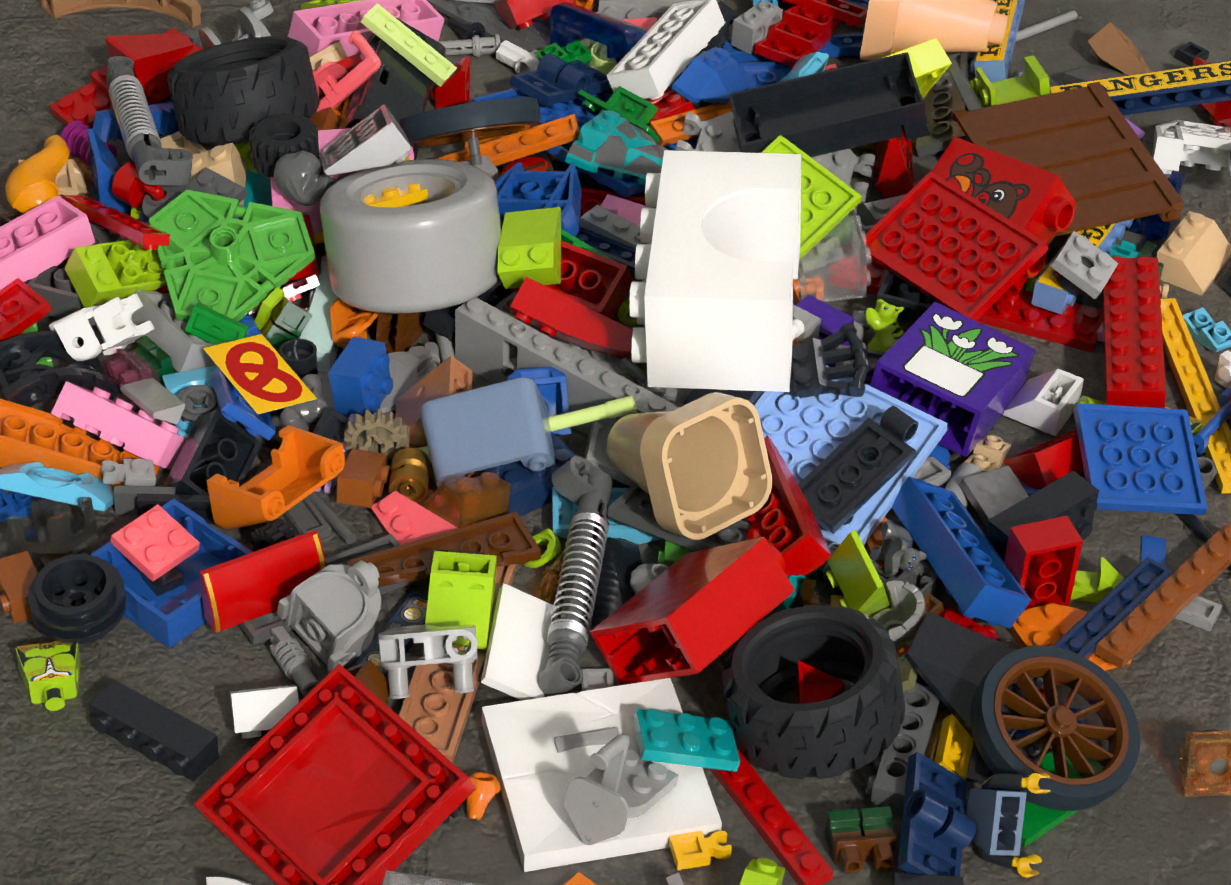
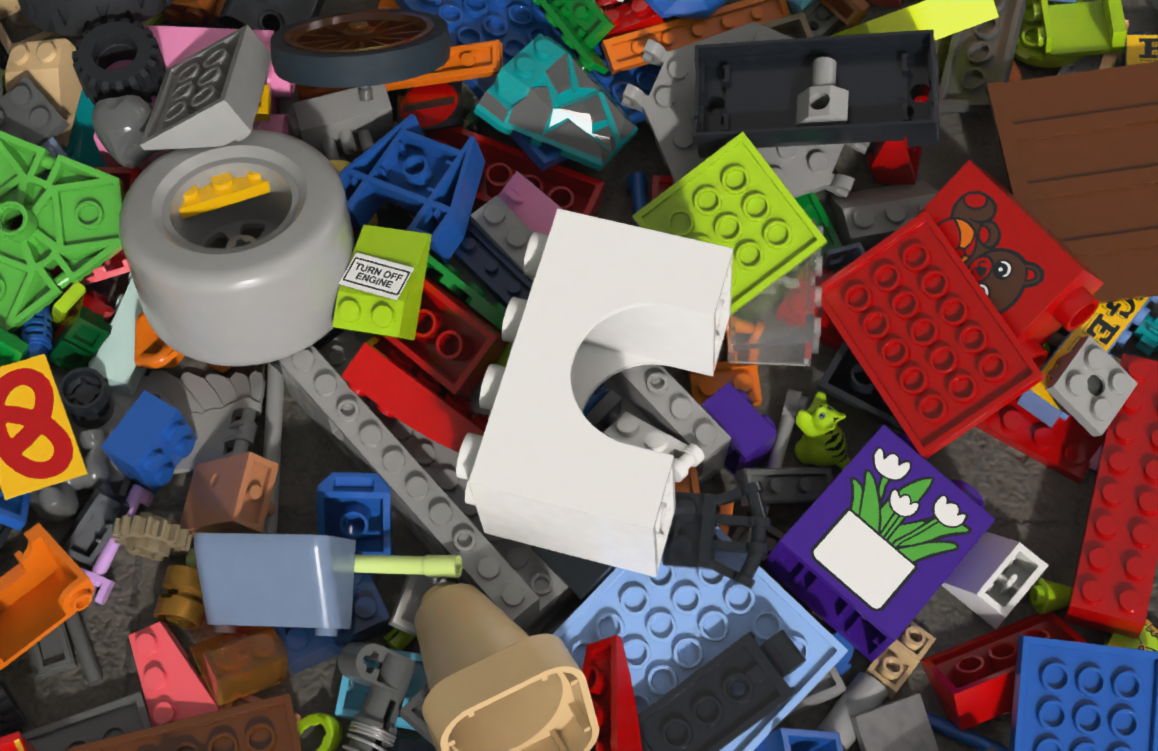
camera: 10 degrees right, 25 degrees up
(362, 478) = (124, 595): dark orange brick -> none
(526, 233) = (376, 276): none -> white sticker
(834, 106) = (821, 94): none -> light grey piece
(964, 88) = (1015, 48): dark grey tile -> none

